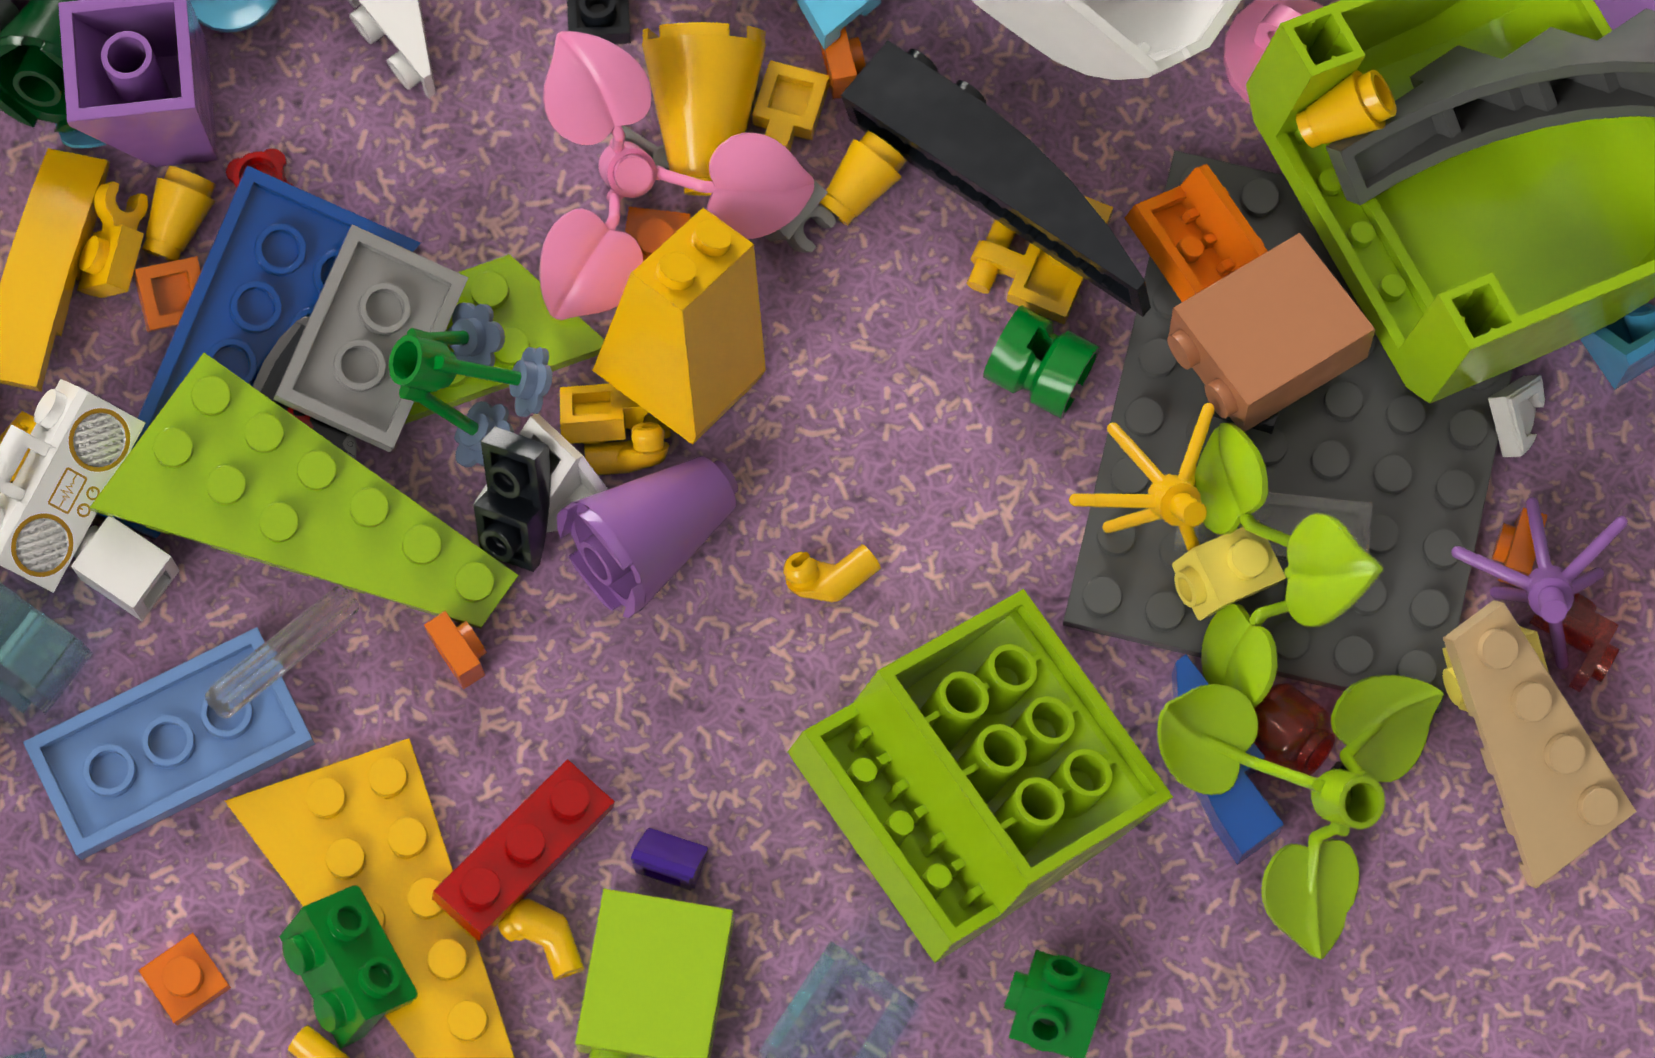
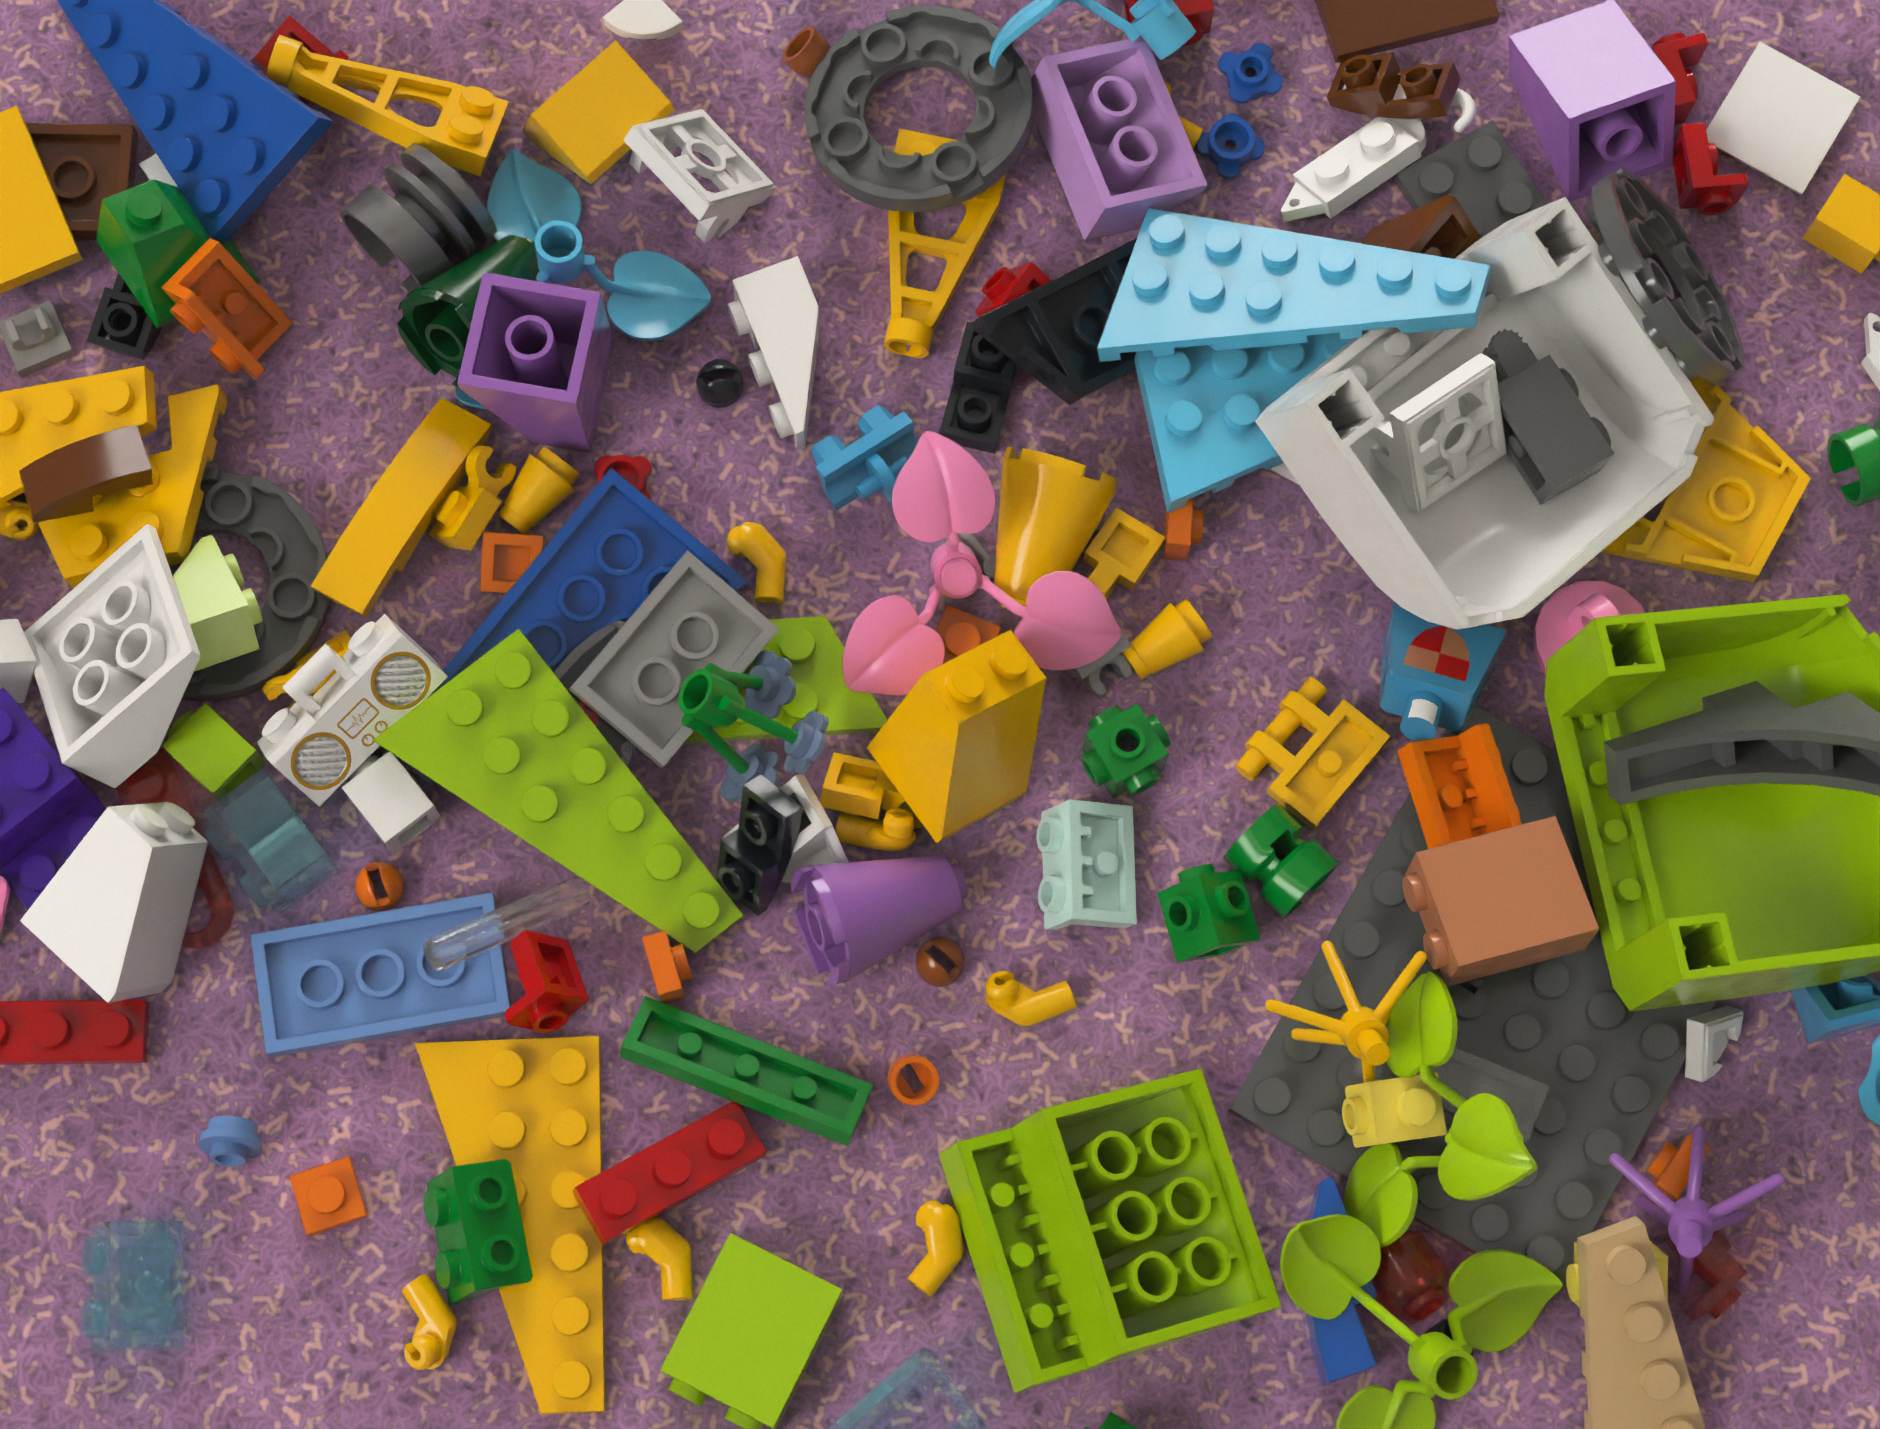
camera: 15 degrees right, 0 degrees up
(67, 952) = (230, 1140): none -> medium blue plate
(125, 662) = (392, 883): none -> orange hinge
(332, 58) = (719, 390): none -> black hinge
(344, 697) = (550, 982): none -> red bracket
(429, 210) = (766, 554): none -> yellow arm
(506, 87) = (869, 462): none -> dark azure hips
(569, 727) = (746, 1070): none -> green plate
(669, 859) = (801, 1219): dark purple slope -> none
(726, 573) = (931, 969): none -> dark orange hinge
(746, 674) = (924, 1071): none -> orange hinge
(820, 839) = (944, 1246): none -> yellow arm
(849, 423) = (1087, 865): none -> light aqua bracket
(853, 317) = (1121, 769): none -> green brick
(984, 435) = (1208, 914): none -> green brick
(989, 163) = (1287, 663): black slope -> none
(1138, 129) = (1434, 672): none -> dark azure torso
(1347, 110) = (1635, 714): yellow cone -> none

